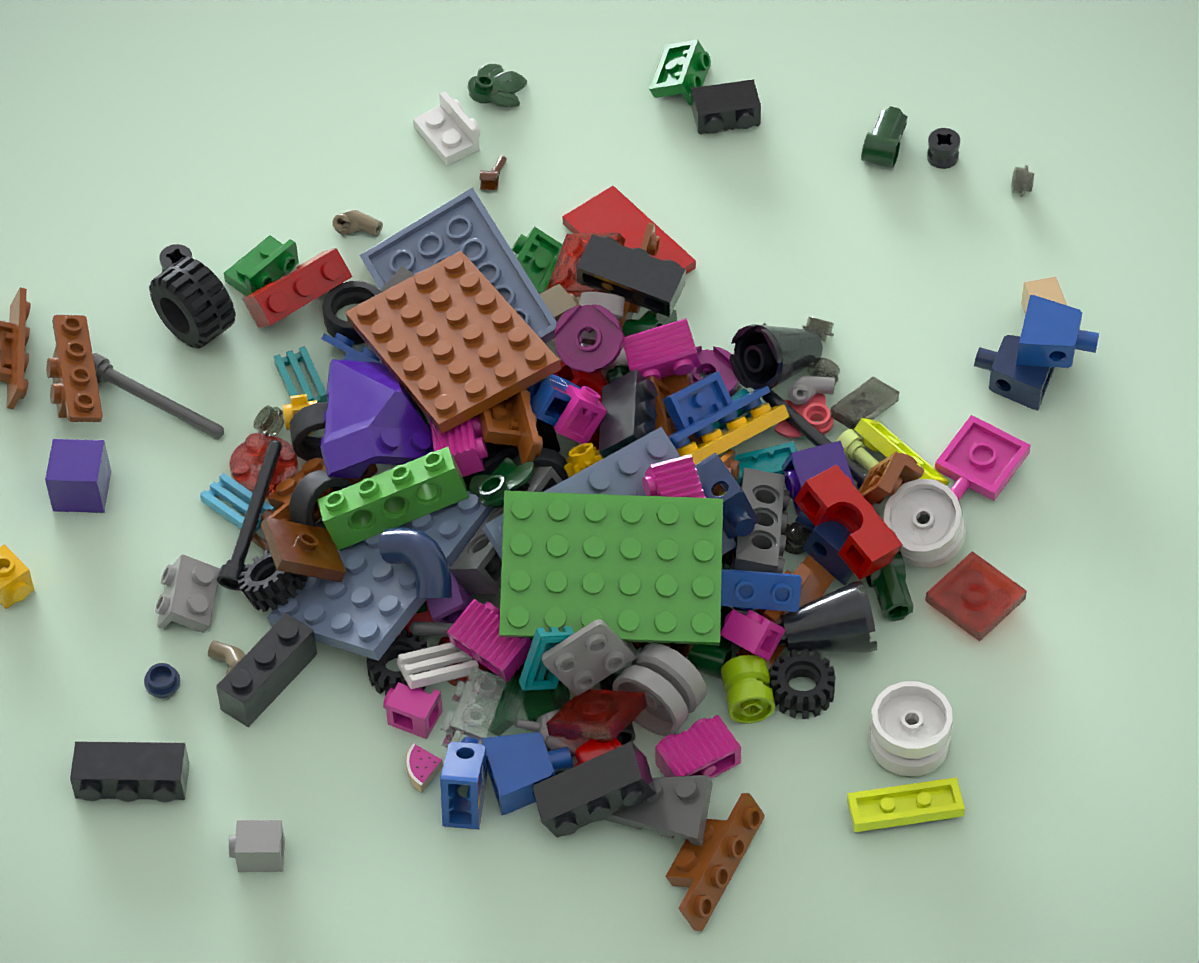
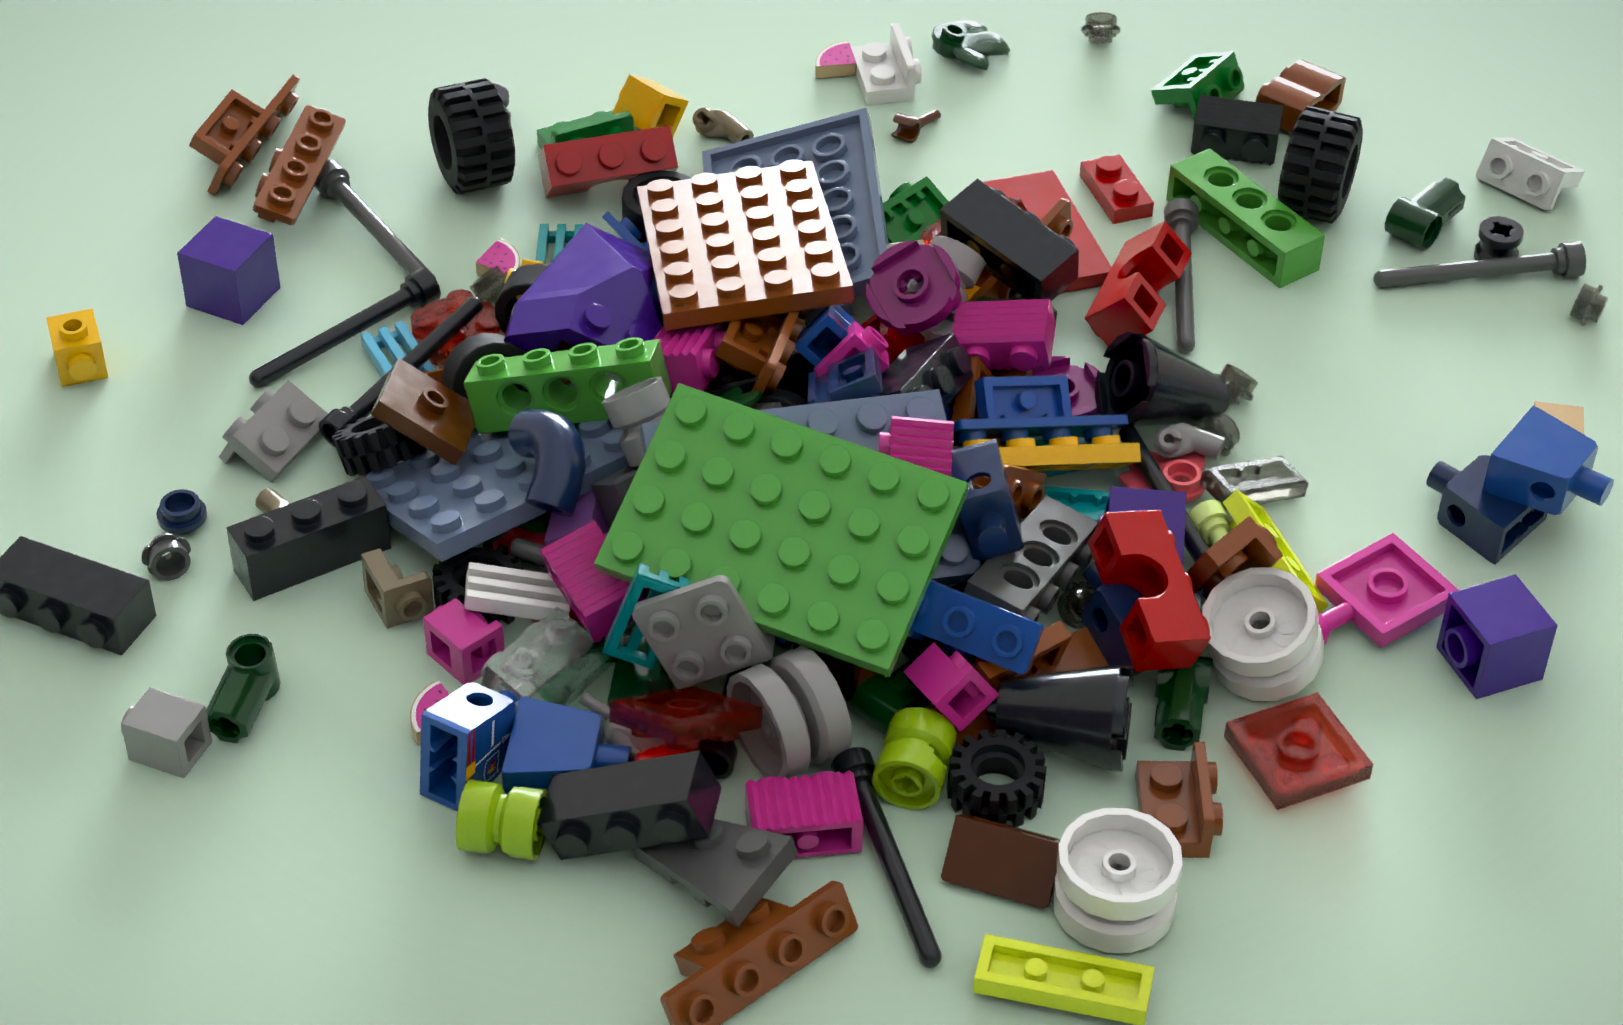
camera: 20 degrees right, 10 degrees down
(175, 717) = (171, 565): none -> dark grey plate
(218, 442) = (417, 290): none -> black piece
(261, 395) = (499, 254): none -> dark pink tile
(290, 796) = (244, 687): none -> dark green piece
(299, 224) = (650, 104): none -> yellow brick
(344, 692) = (391, 594): none -> dark tan bracket
(407, 134) = (835, 61): none -> tile
(468, 511) = (633, 406): none -> light grey wheel
(514, 826) = (494, 818): none -> lime wheel
(587, 42) = (1100, 27): none -> clear smoke plate
(590, 437) = (847, 379): none -> dark blue plate
(662, 185) = (1116, 189): none -> red plate
(713, 706) = (862, 764): none -> black piece
(719, 289) = (1129, 293): none -> red arch
(722, 201) = (1183, 218): none -> dark grey piece
(757, 59) = (1302, 86): none -> dark orange brick
(764, 184) = (1247, 218): none -> bright green brick
(804, 127) = (1320, 163): none -> black tyre
(832, 737) = (1001, 860): none -> reddish brown panel
(919, 656) = (1182, 799): none -> dark orange bracket
(938, 77) = (1526, 172): none -> white bracket
(993, 147) = (1566, 260): none -> dark grey piece
(1065, 471) = (1496, 636): none -> dark purple head

